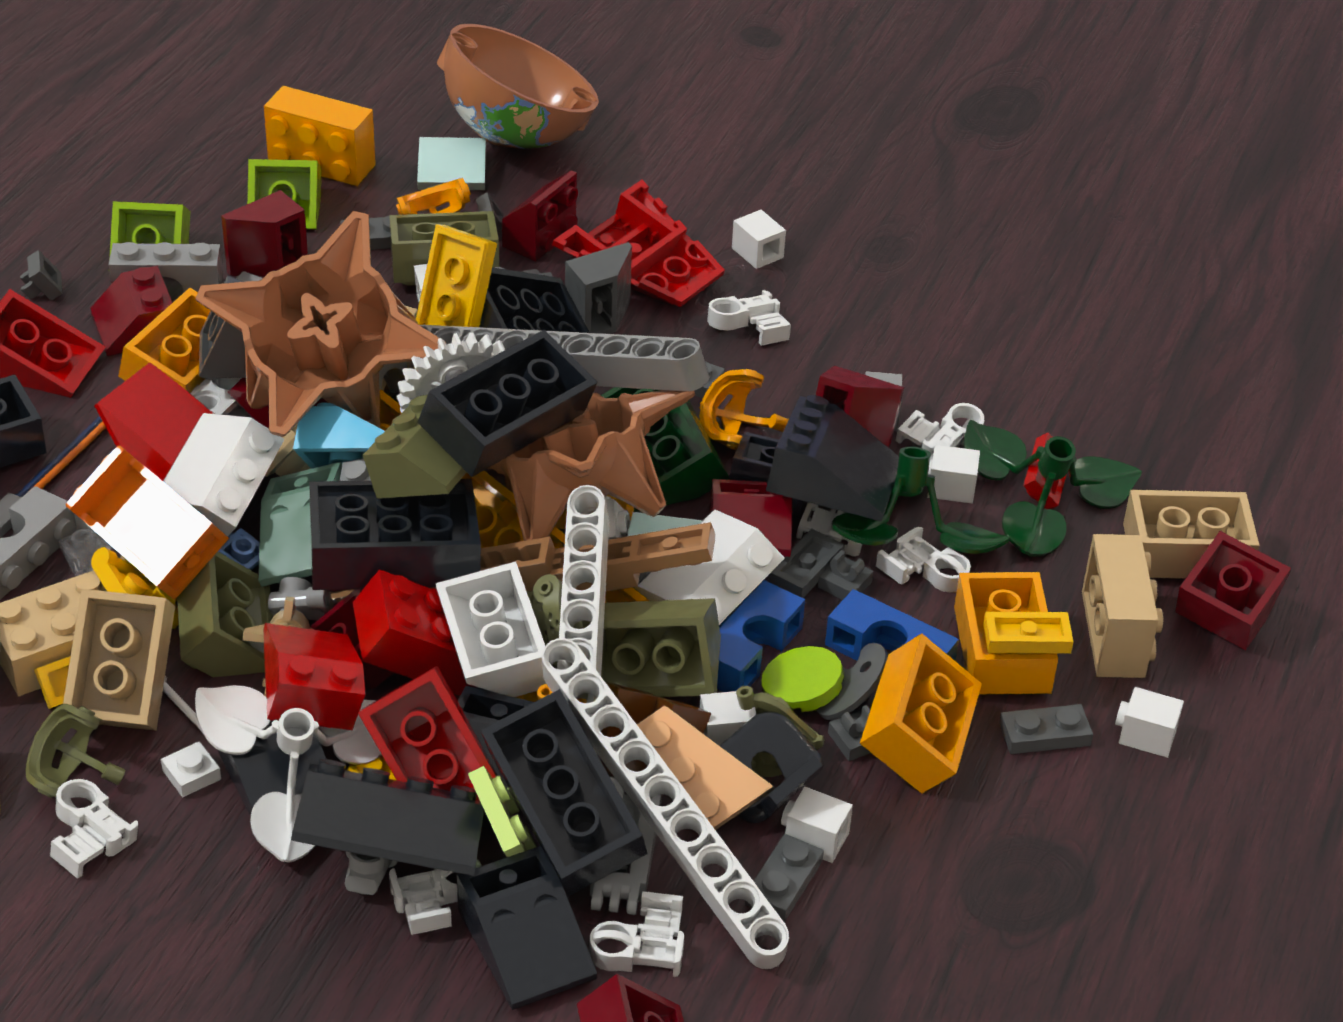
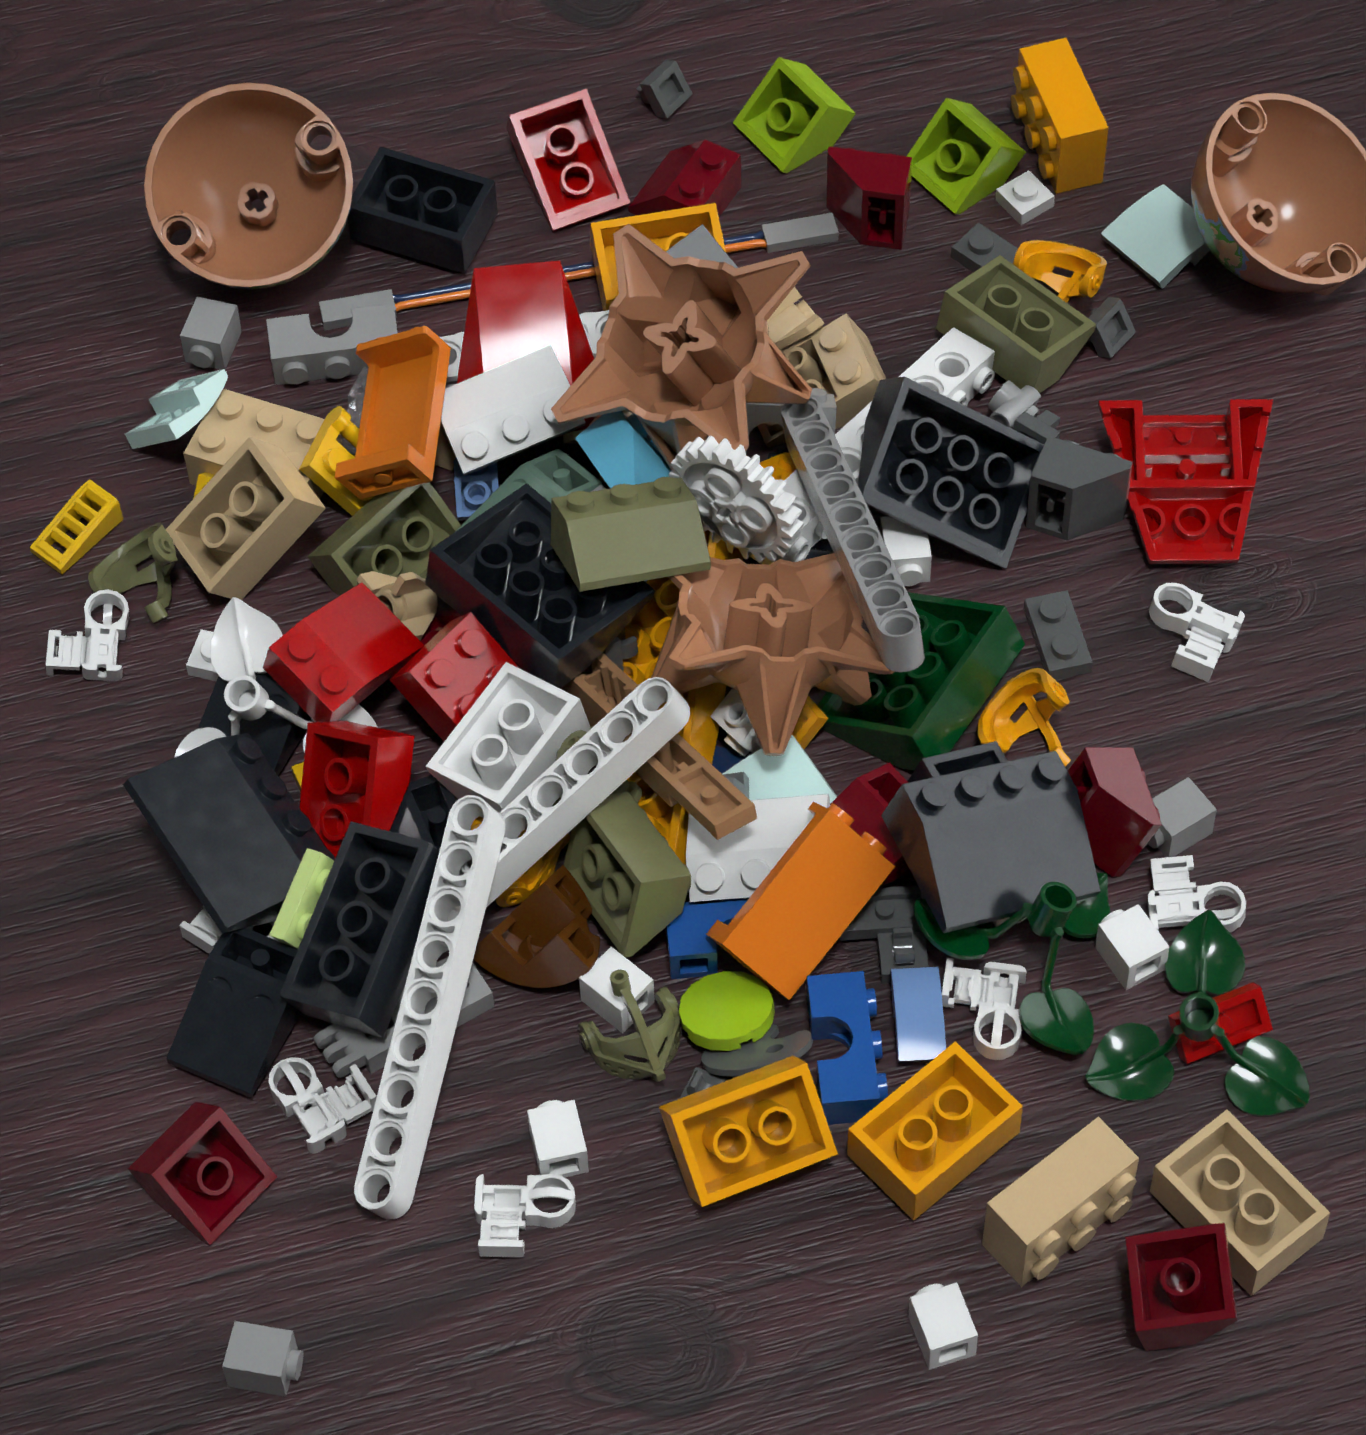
camera: 55 degrees right, 15 degrees up
(183, 706) = (288, 559): white piece -> none
(186, 263) = (783, 178): light grey arch -> none
(345, 195) = (1024, 197): none -> white plate
(455, 278) = (878, 387): yellow tile -> none
(507, 402) = (711, 548): black brick -> none
(542, 218) = (1143, 367): dark red slope -> none
(707, 772) = (515, 1012): light nougat wing -> none
(758, 239) = (1318, 552): white brick -> none
(785, 572) = (805, 901): none -> orange panel
(788, 873) = (495, 1153): dark grey plate -> none
(790, 748) = (609, 1059): black piece -> none
(851, 893) = (508, 1204): none -> white piece
(903, 590) = (918, 1013): none -> medium blue slope
(1028, 632) = (910, 1147): yellow plate -> none
(1045, 729) = (861, 1245): dark grey plate -> none

